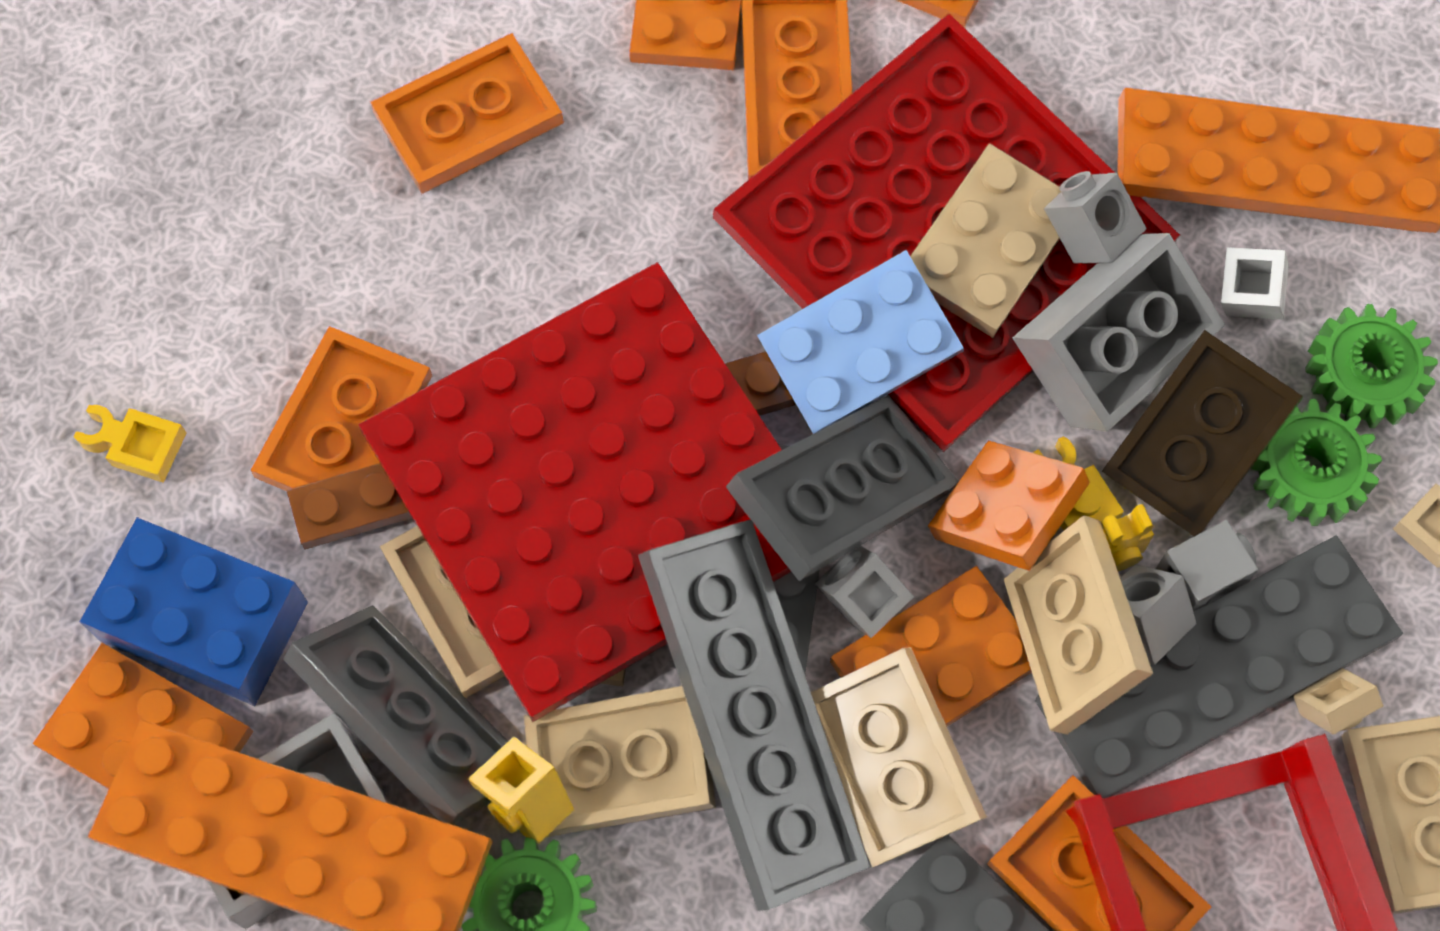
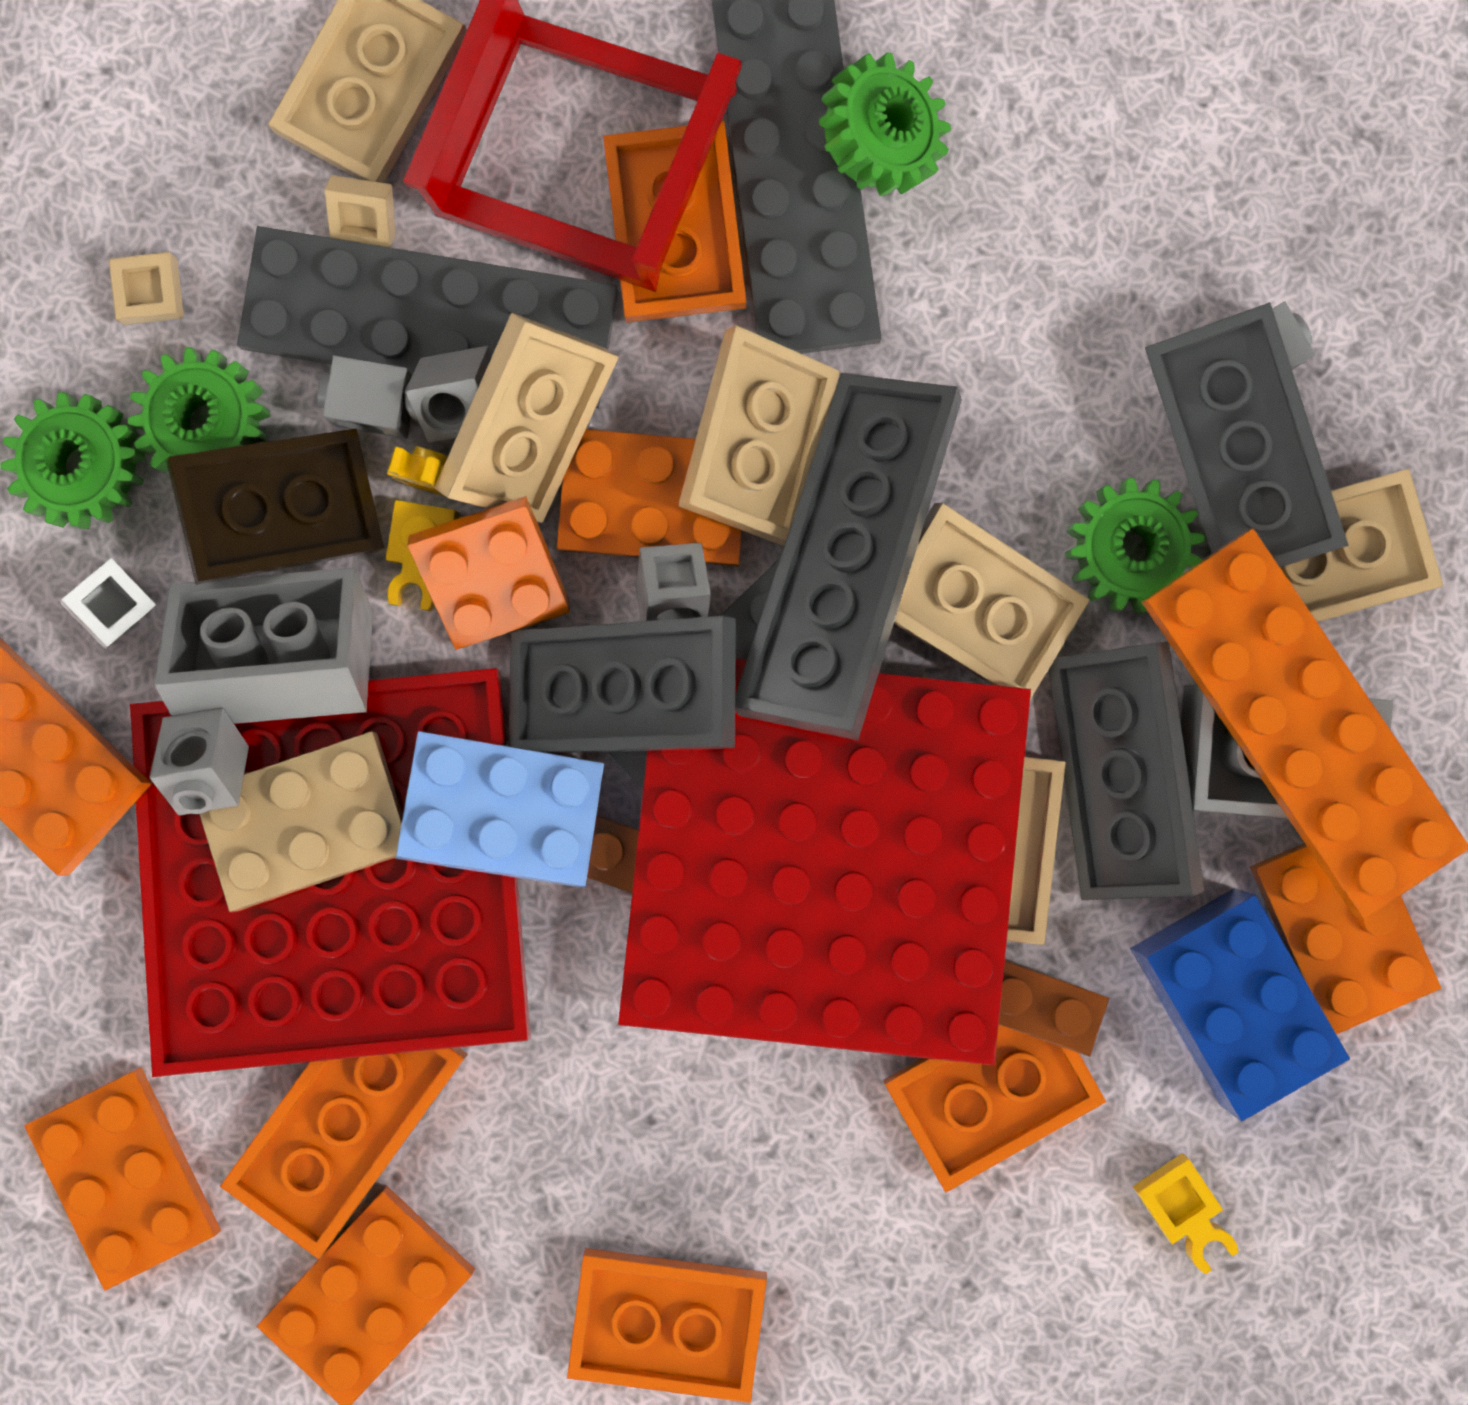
camera: 145 degrees left, 20 degrees up
(523, 791) = (1088, 626): yellow brick -> none

